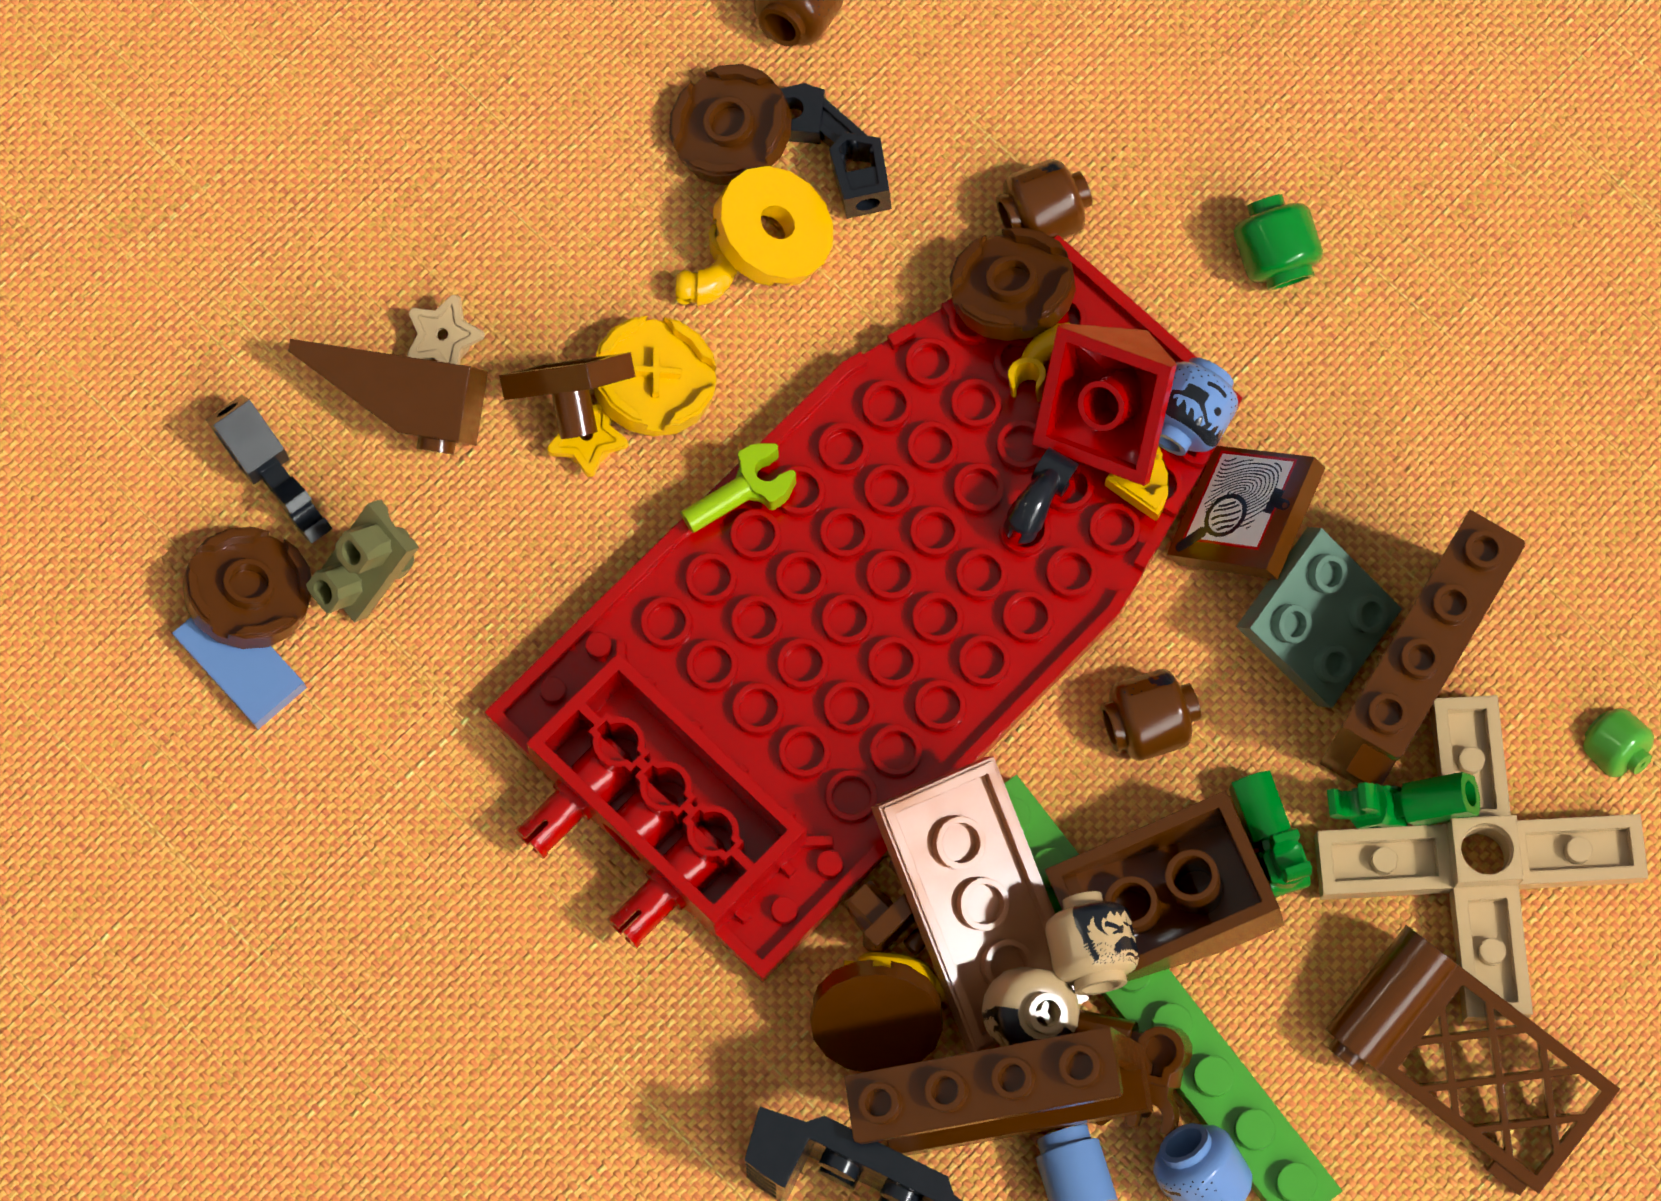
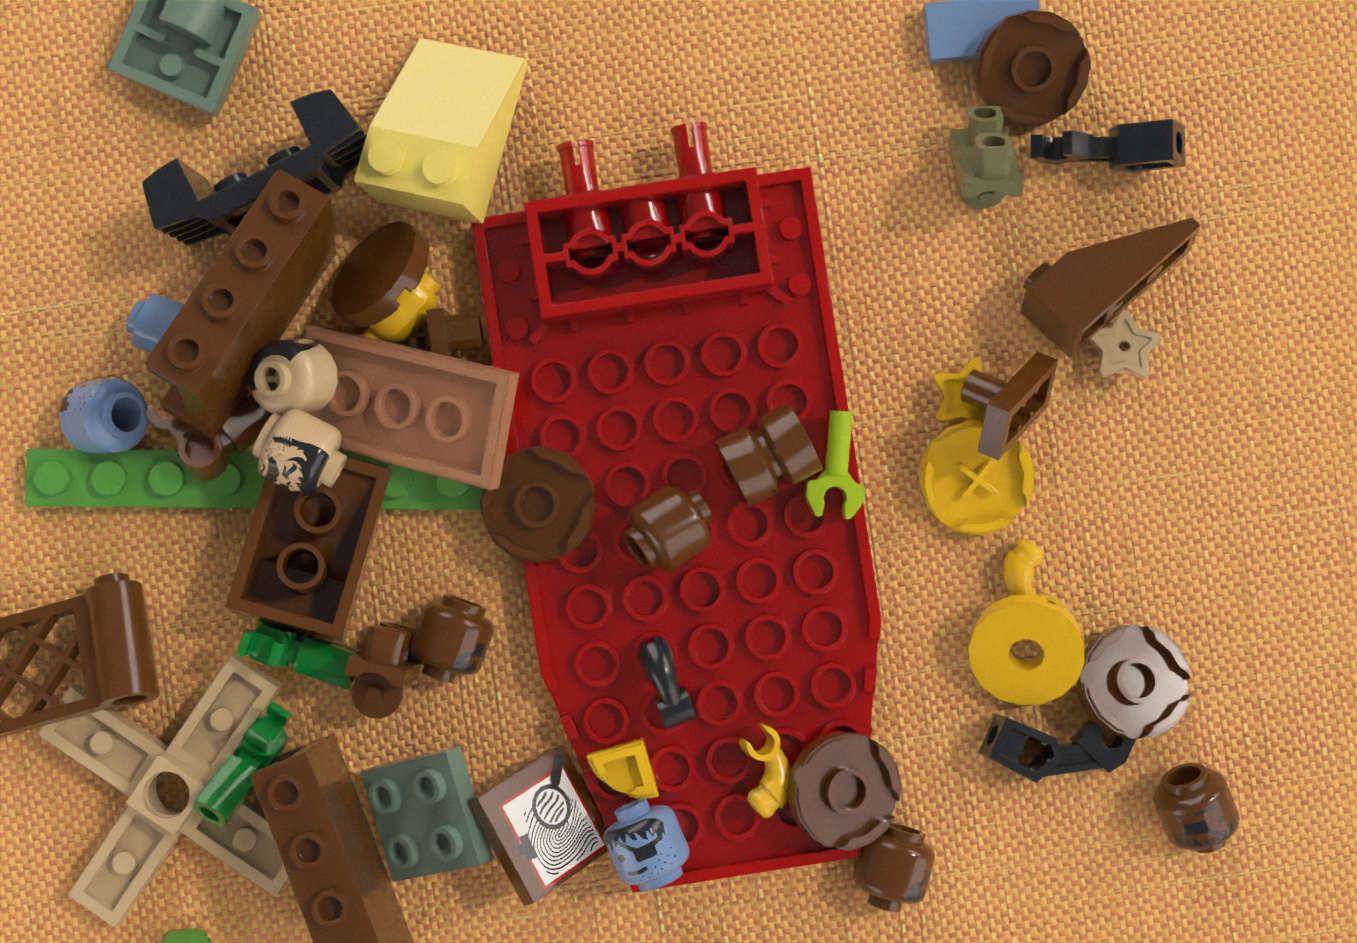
camera: 125 degrees right, 15 degrees up
(694, 1064) = (442, 131): none -> light yellow slope
(770, 545) = (769, 455): none -> reddish brown wheel
(906, 586) = (668, 529): none -> reddish brown head
(970, 713) = (540, 506): none -> reddish brown tile
(1106, 399) = (695, 786): red slope -> none
(1223, 745) = (383, 669): none -> reddish brown hips

